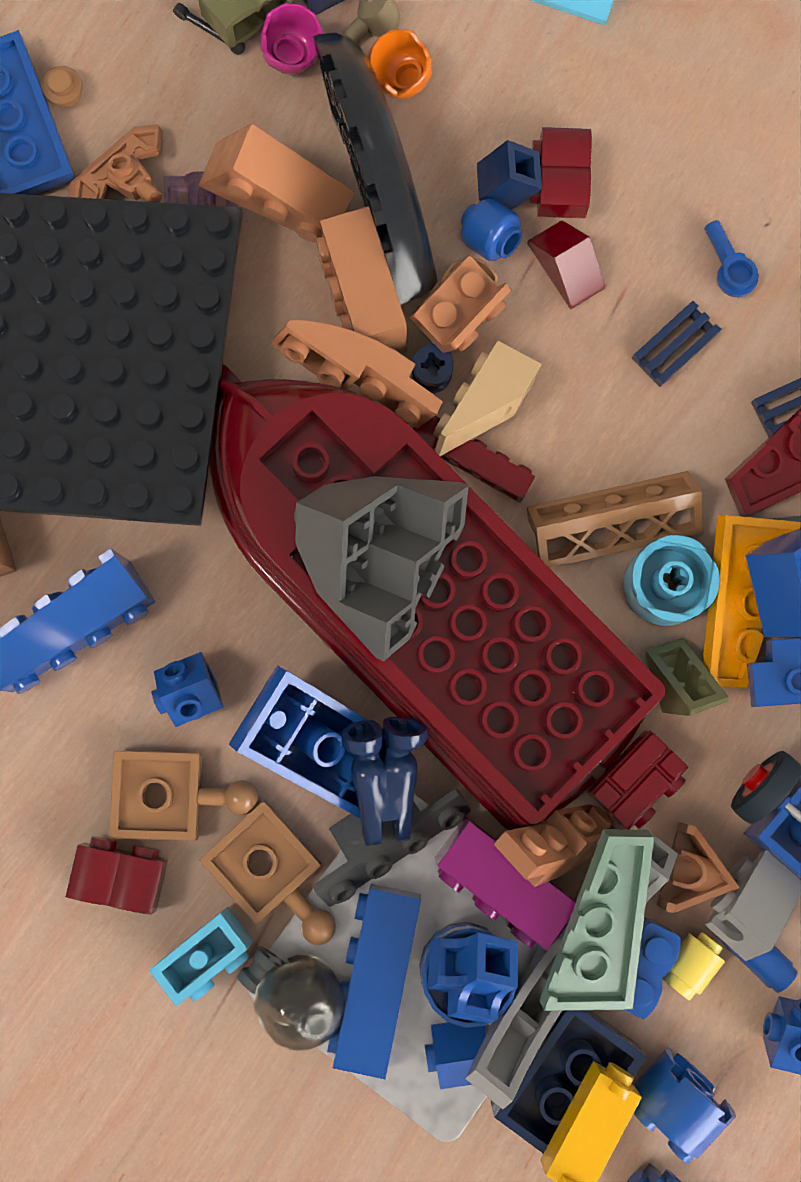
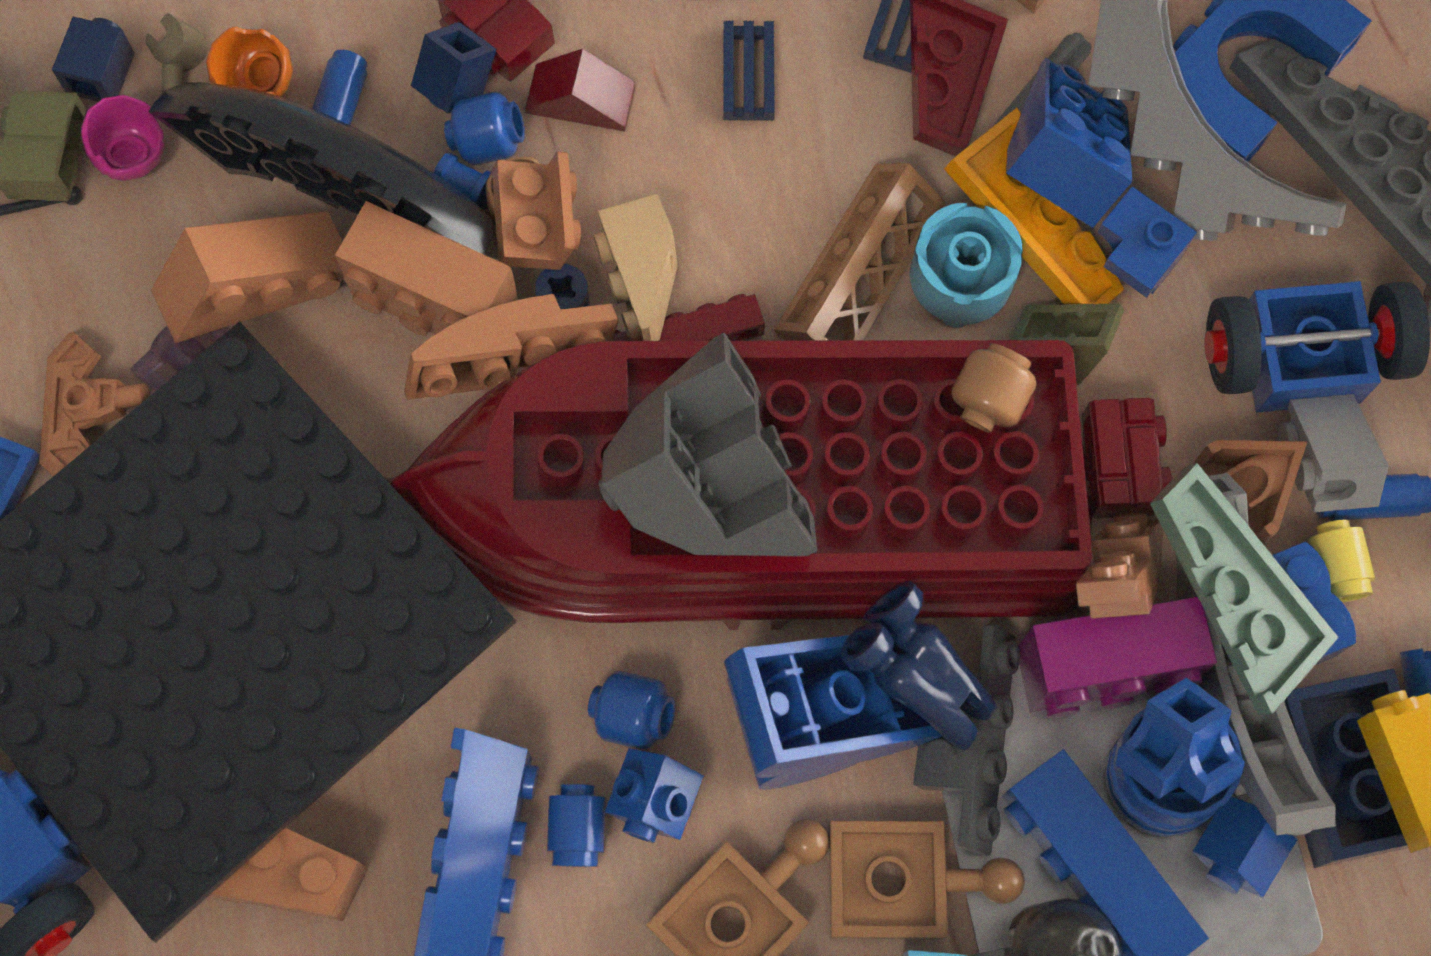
camera: 50 degrees left, 10 degrees down
(134, 662) = (576, 826): none -> blue brick
(225, 633) = (632, 710): none -> blue head
(433, 130) = (341, 85): none -> blue piece
(444, 246) = (463, 178): none -> blue bush
(587, 673) = (994, 387): none -> medium nougat head

